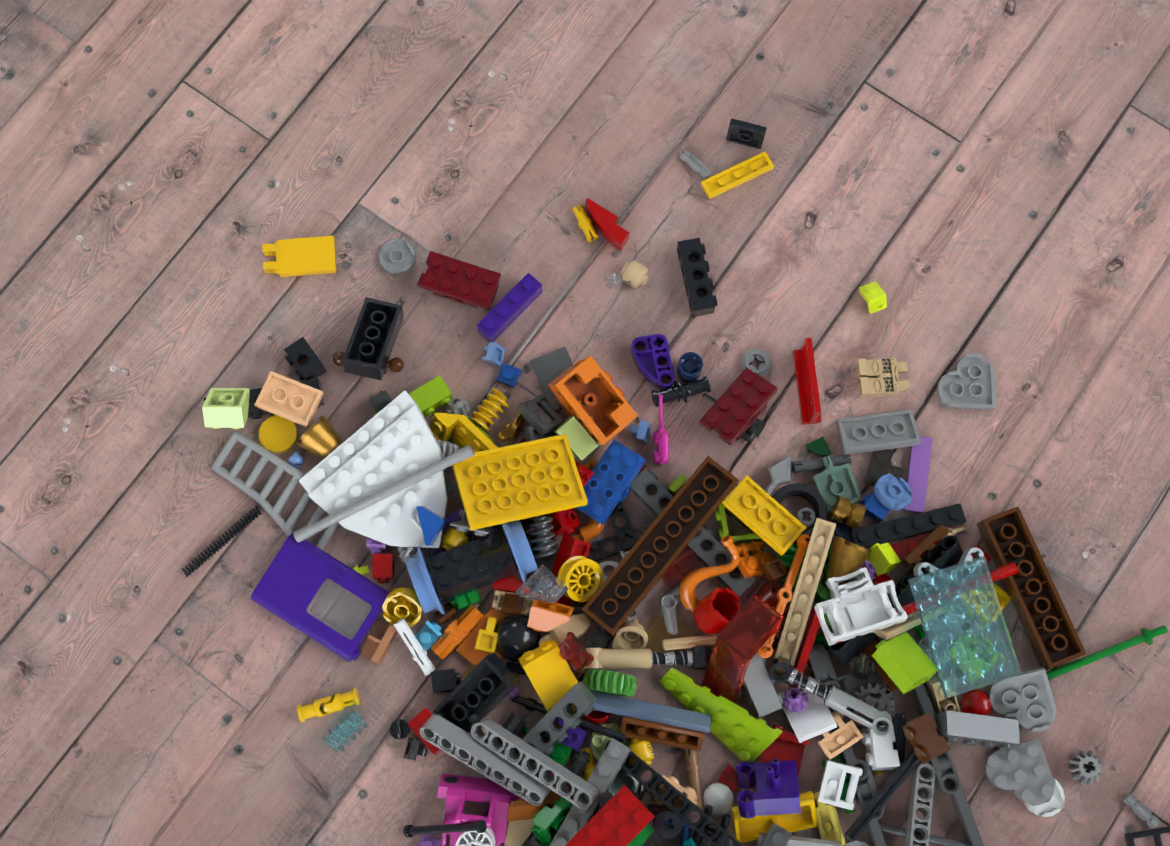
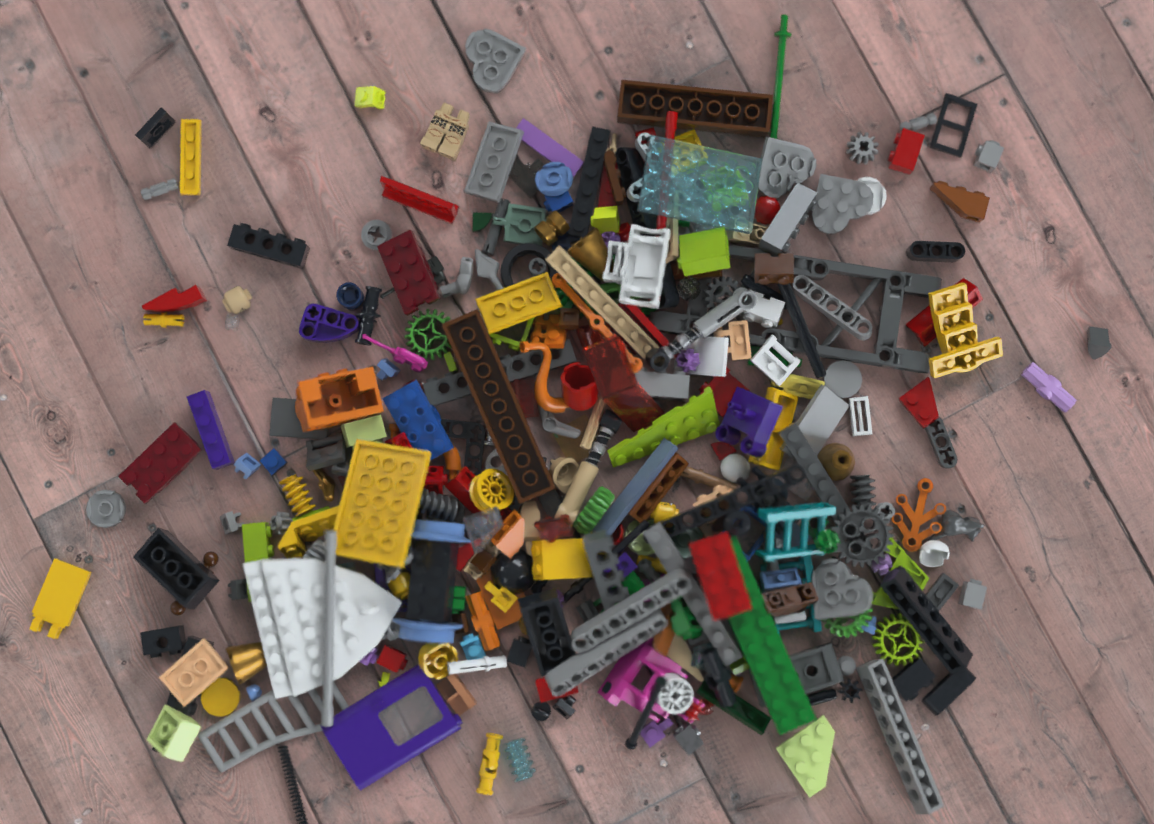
camera: 60 degrees left, 10 degrees up
(430, 524) = (378, 599): blue slope -> none
(436, 364) = (229, 523): none -> light grey tile
(688, 437) = (428, 342): none -> bright green gear
(756, 459) = (463, 280): none -> light grey arm
(1108, 811) = (906, 151): none -> red brick

